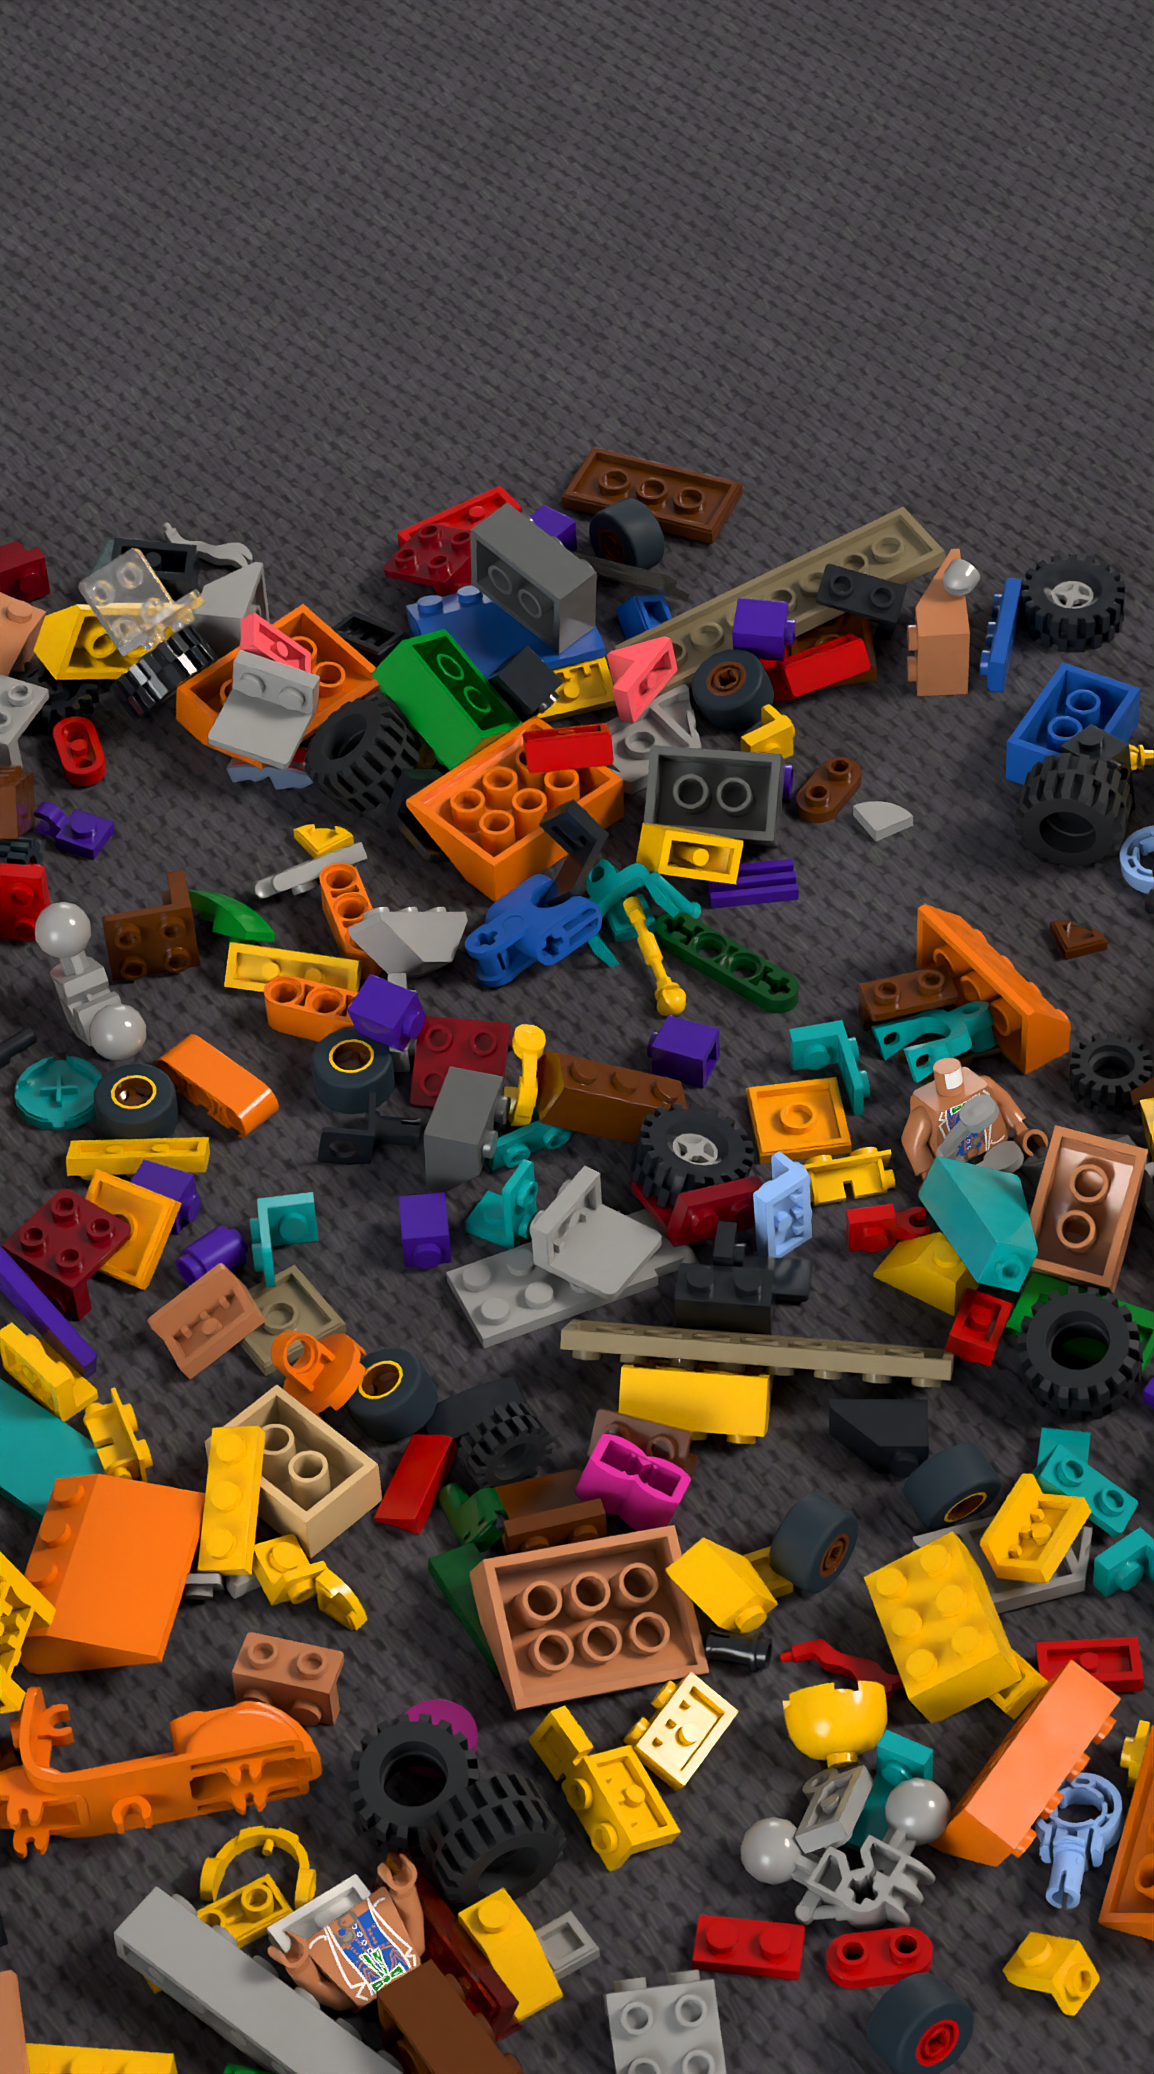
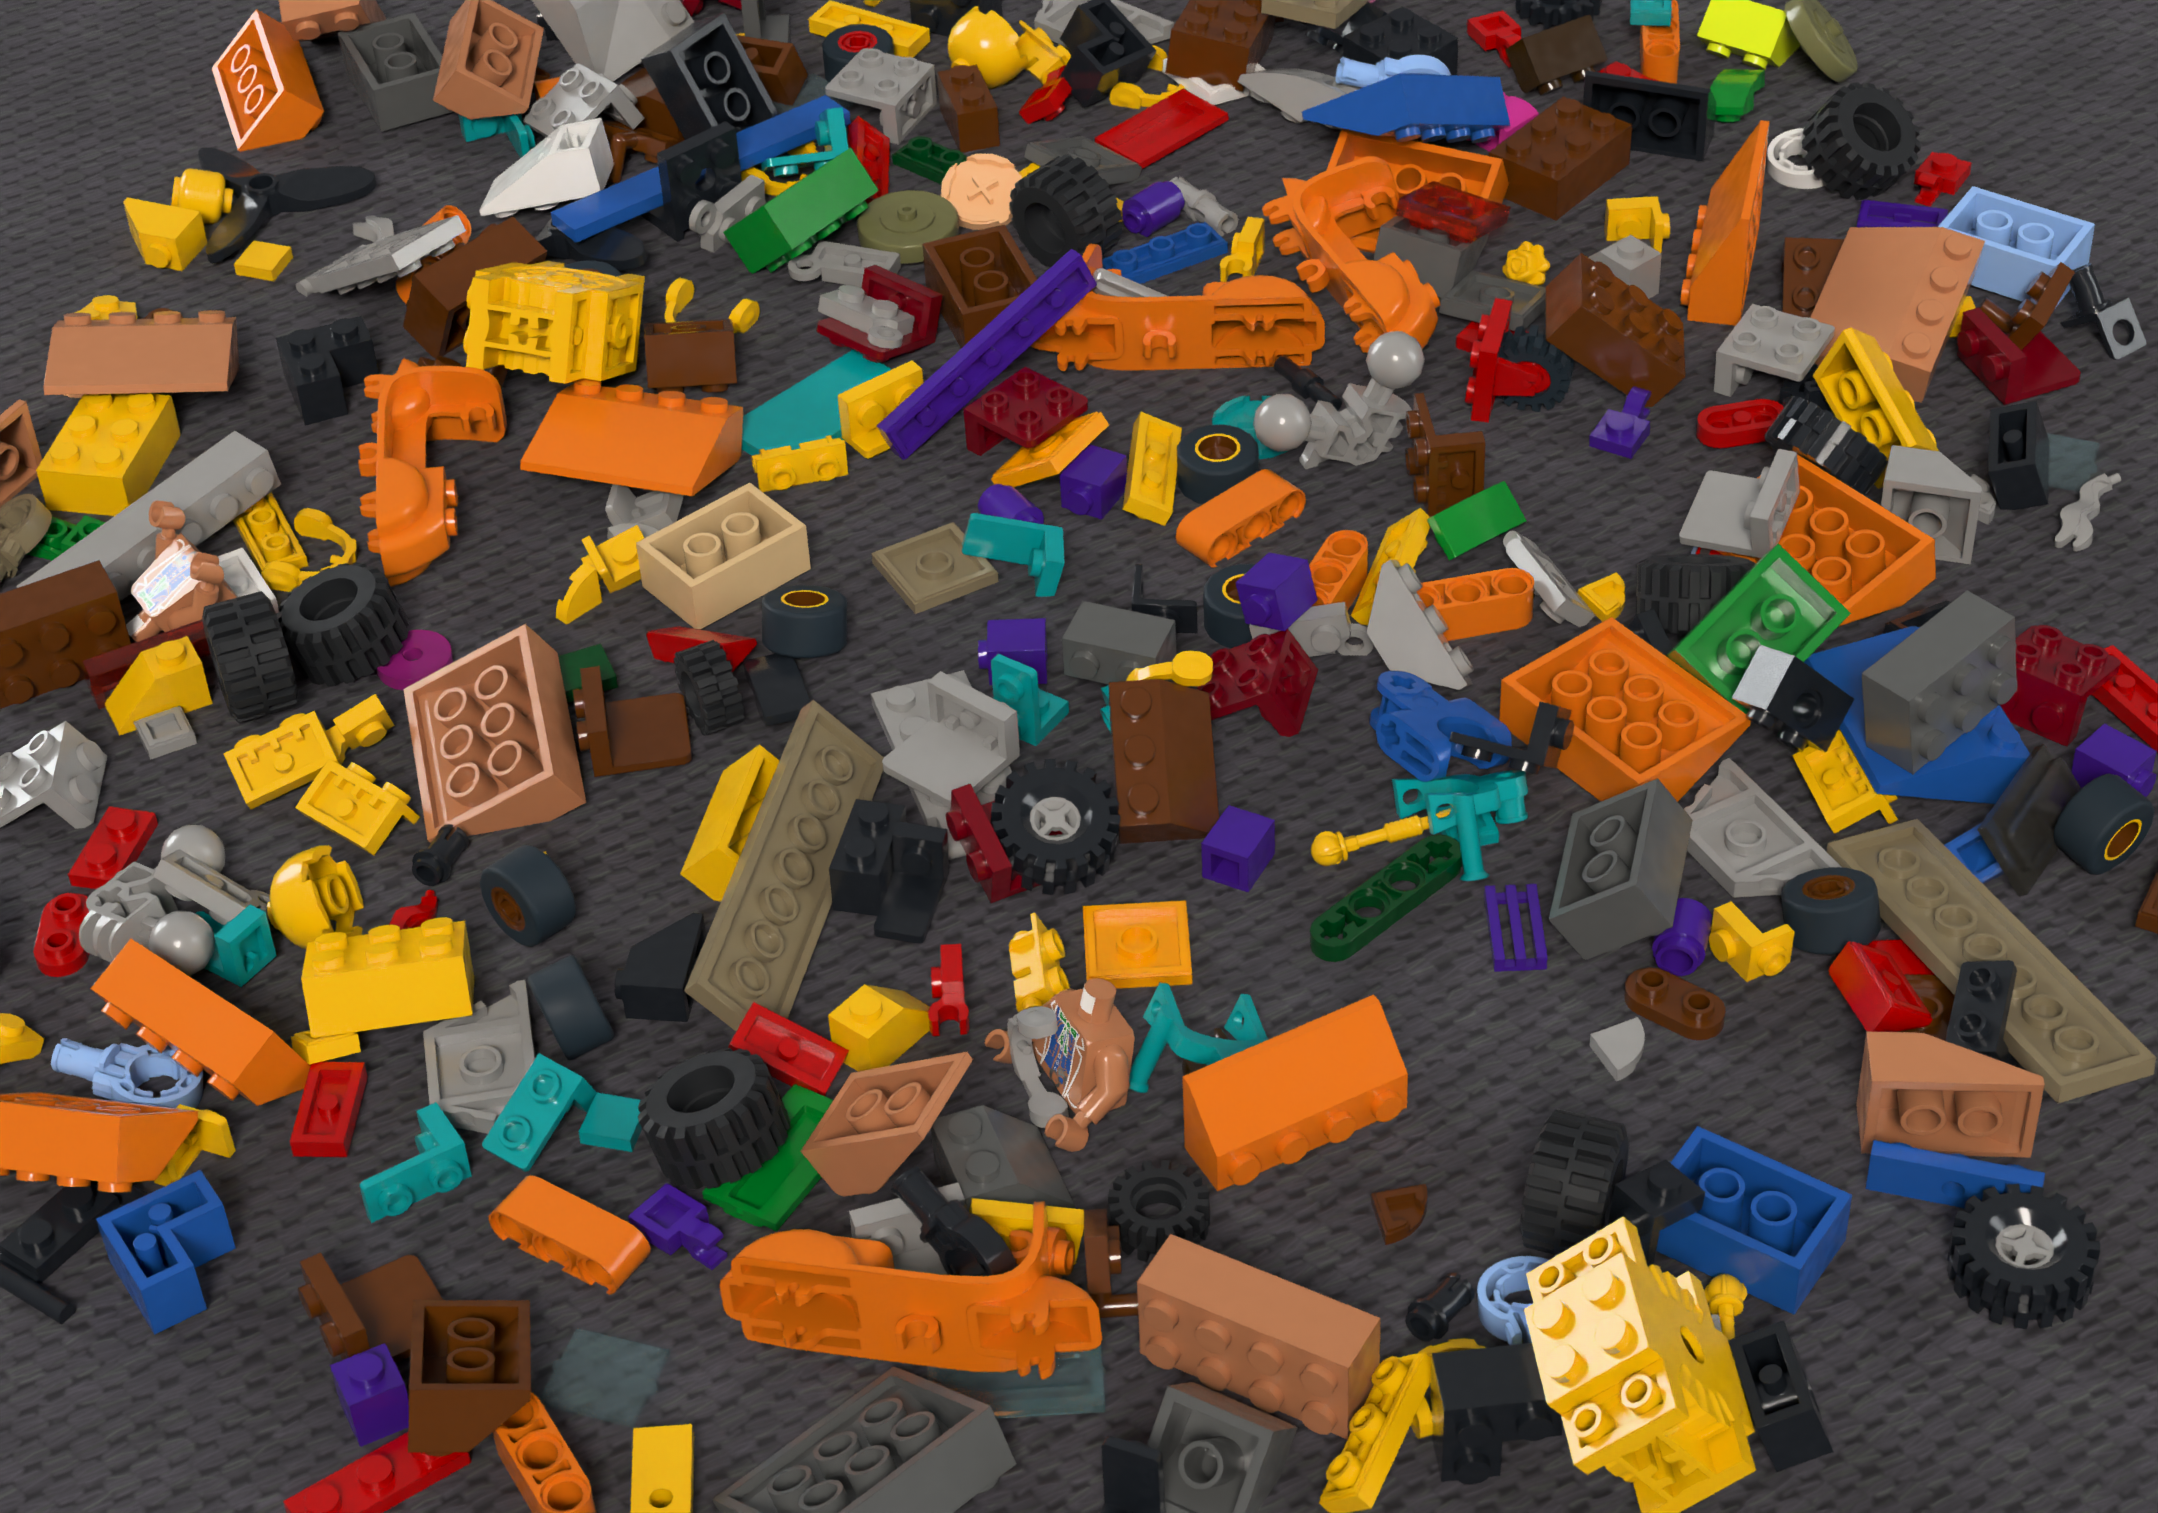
camera: 95 degrees right, 5 degrees down
(135, 603) = (1866, 373): clear bracket -> none
(206, 1320) = (925, 509): nougat bracket -> none
(231, 1501) = (677, 498): yellow plate -> none
(269, 642) = (1826, 502): coral slope -> none
(289, 1677) = (486, 553): nougat bracket -> none
(324, 1373) = (834, 564): orange tile -> none
(473, 1518) = (646, 680): dark green piece -> none
(568, 748) = (1687, 734): red slope -> none
(631, 1484) = (630, 770): dark pink brick -> none
(640, 675) = (1832, 819): coral slope -> none
(650, 1436) = (683, 788): reddish brown bracket -> none
(689, 853) = (1523, 837): yellow slope -> none
(723, 1586) = (483, 820): yellow slope -> none
(763, 628) = (1902, 908): dark purple brick -> none
(783, 1208) = (973, 894): light blue bracket -> none
(828, 1044) = (1214, 975): teal bracket -> none
(905, 996) = (1276, 1003): reddish brown bracket -> none
(960, 578) = (1961, 1064): light grey hinge -> none
(982, 1219) = (891, 1026): teal slope -> none
(1032, 1532) = (478, 1048): yellow bracket -> none

